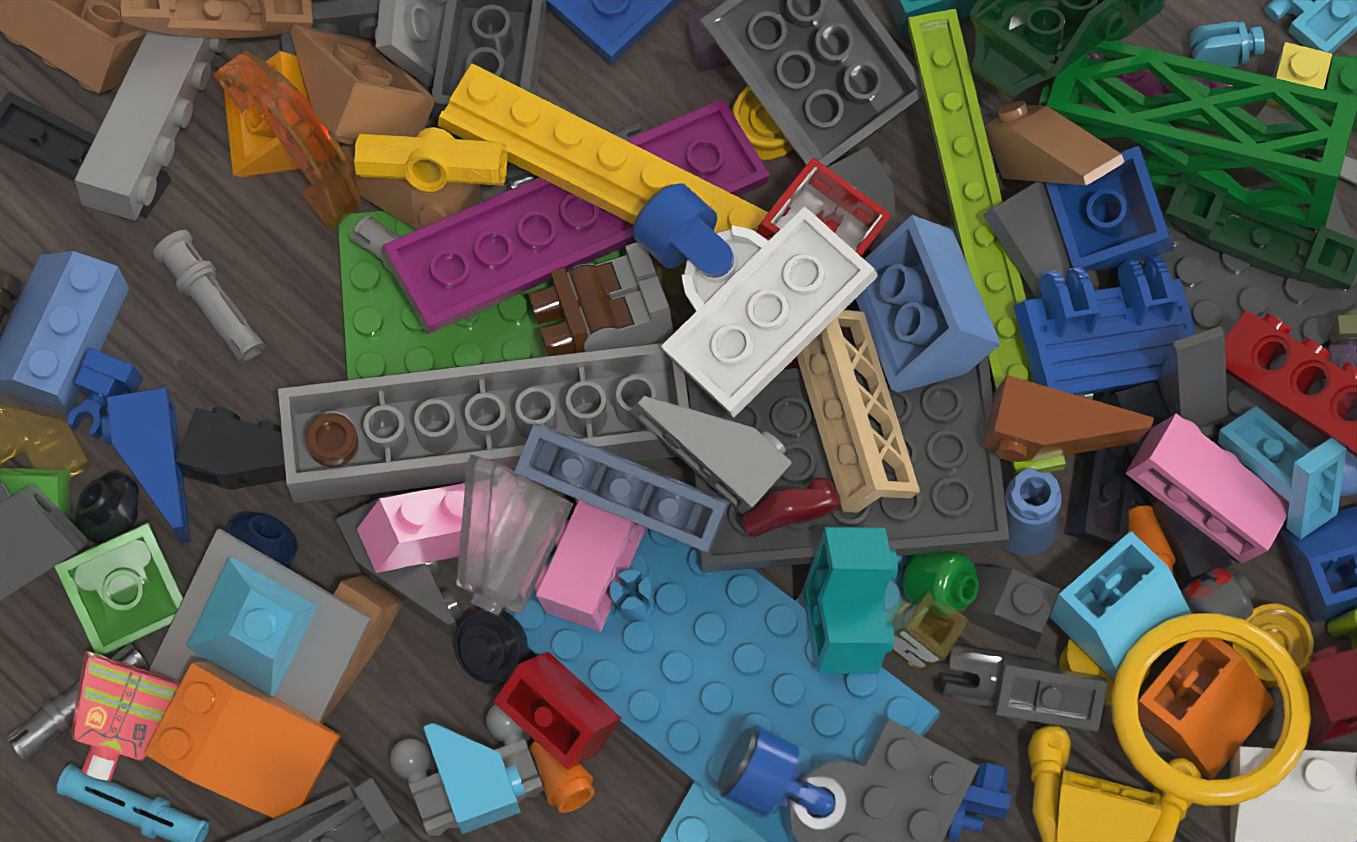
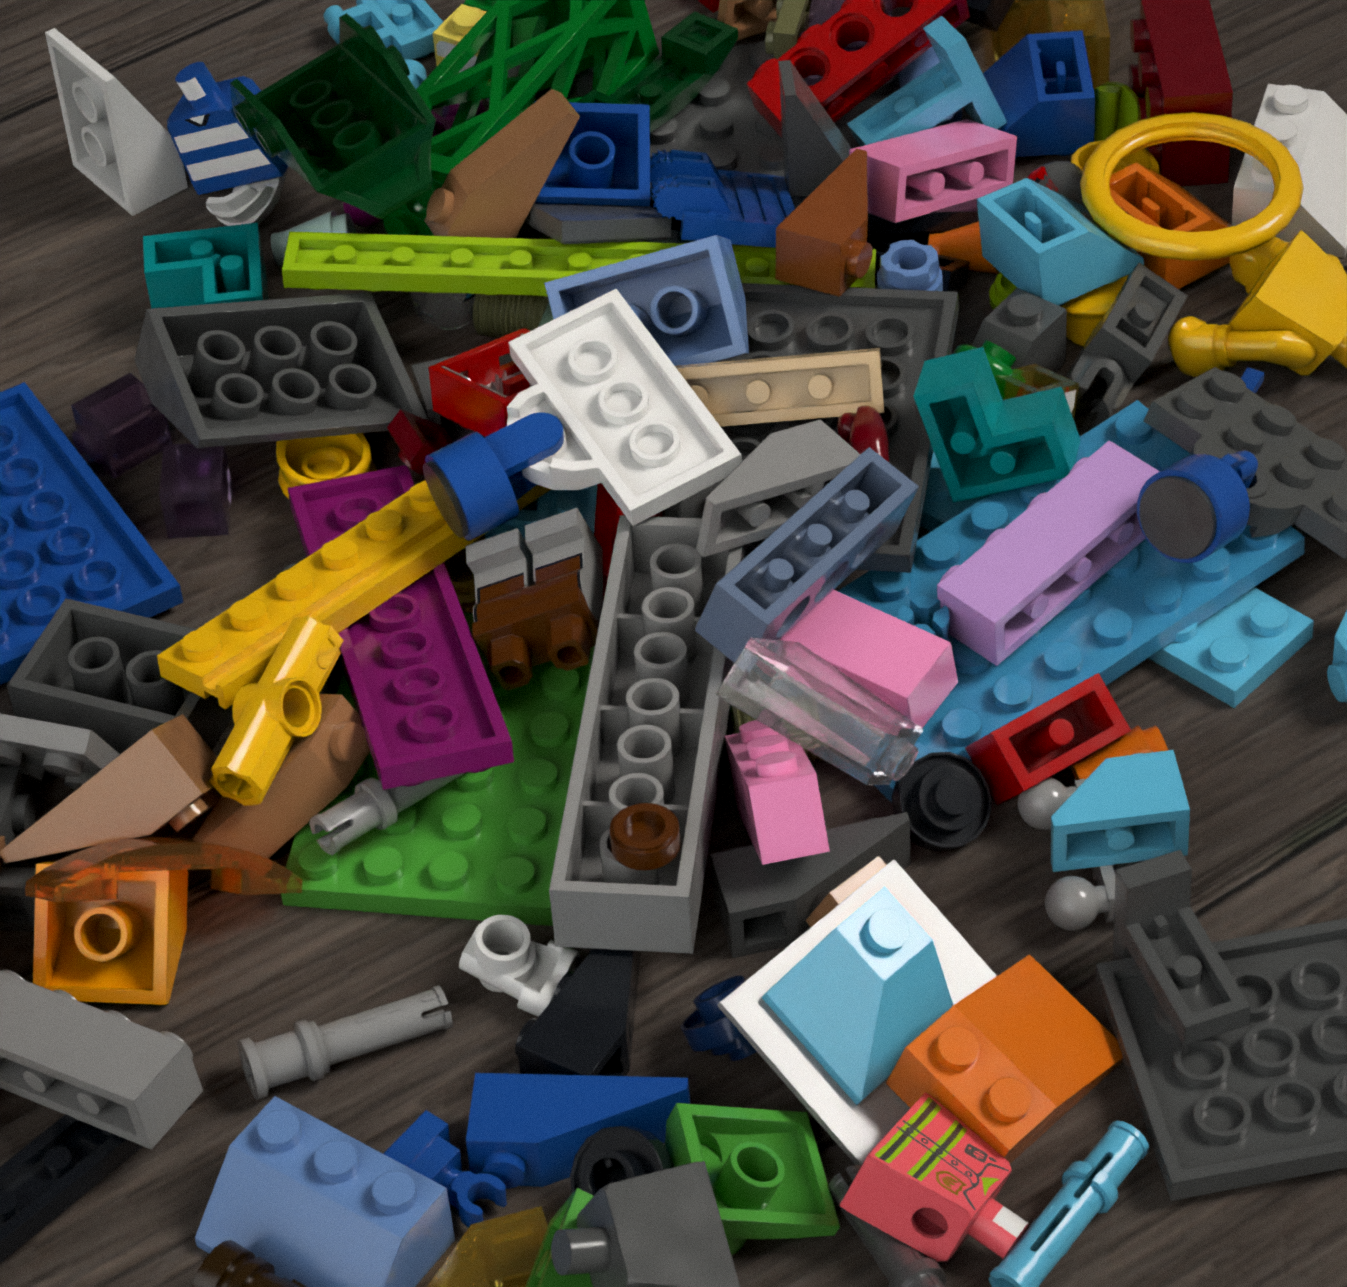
camera: 75 degrees left, 25 degrees down
(278, 375) = (511, 963): none -> white plate
(723, 672) = (1046, 554): none -> lavender brick
(780, 175) = (417, 438): none -> dark red plate

